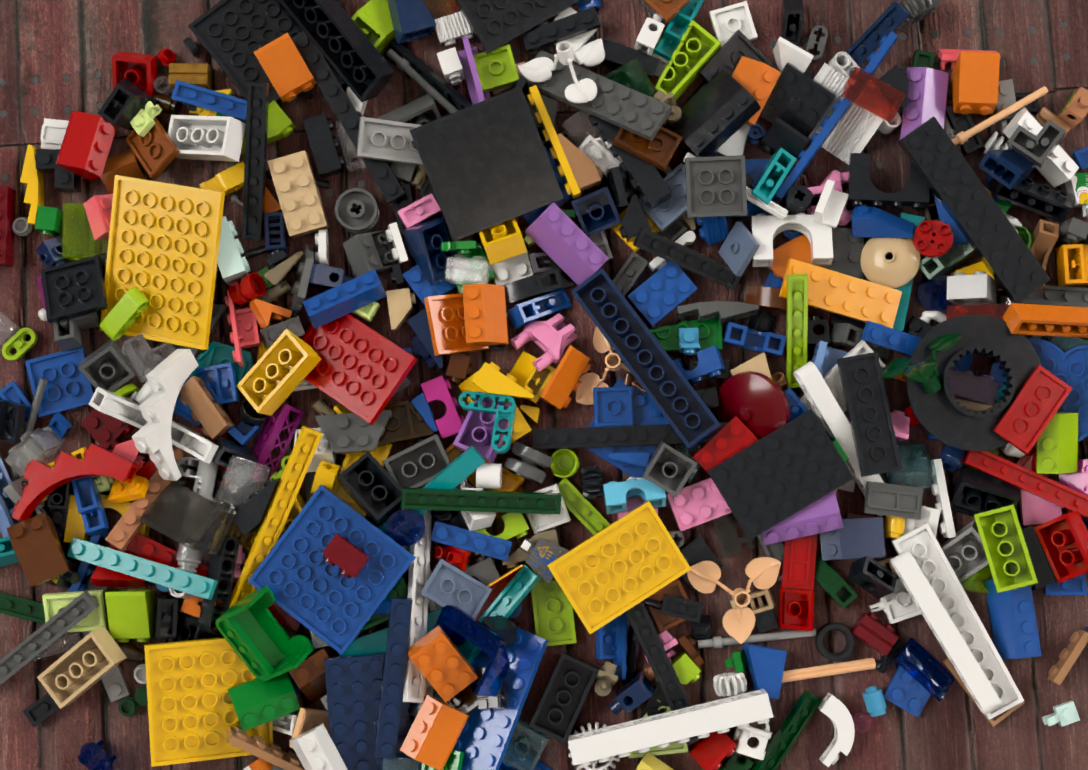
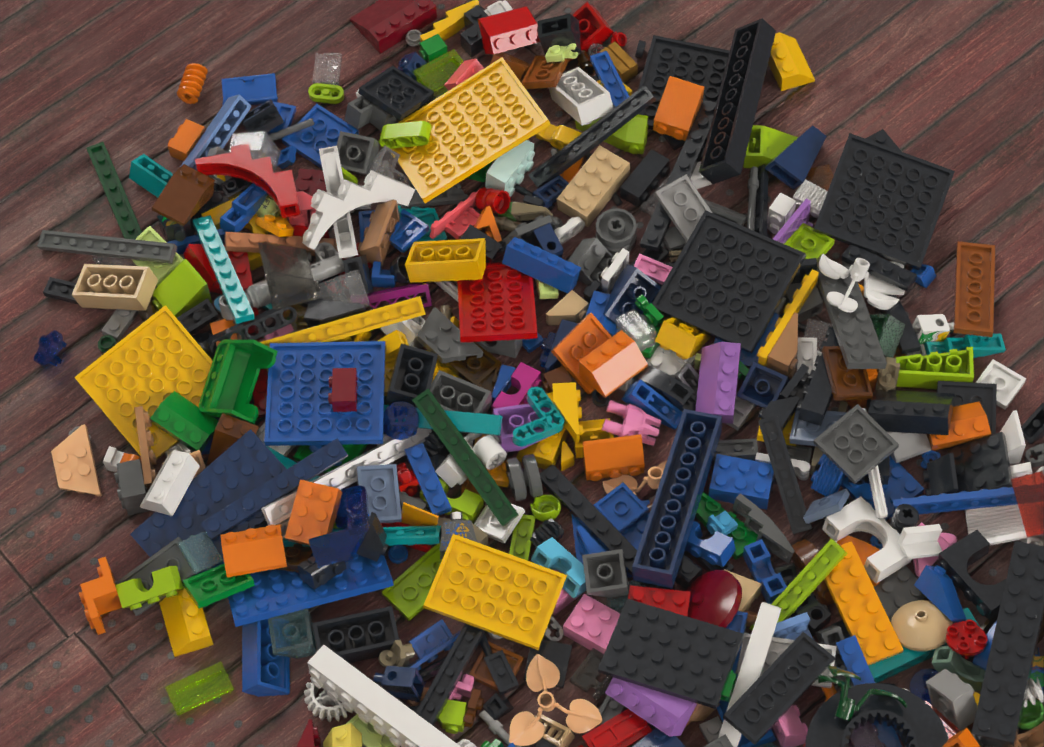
camera: 50 degrees right, 25 degrees down
(773, 175) = (905, 484): teal slope -> none

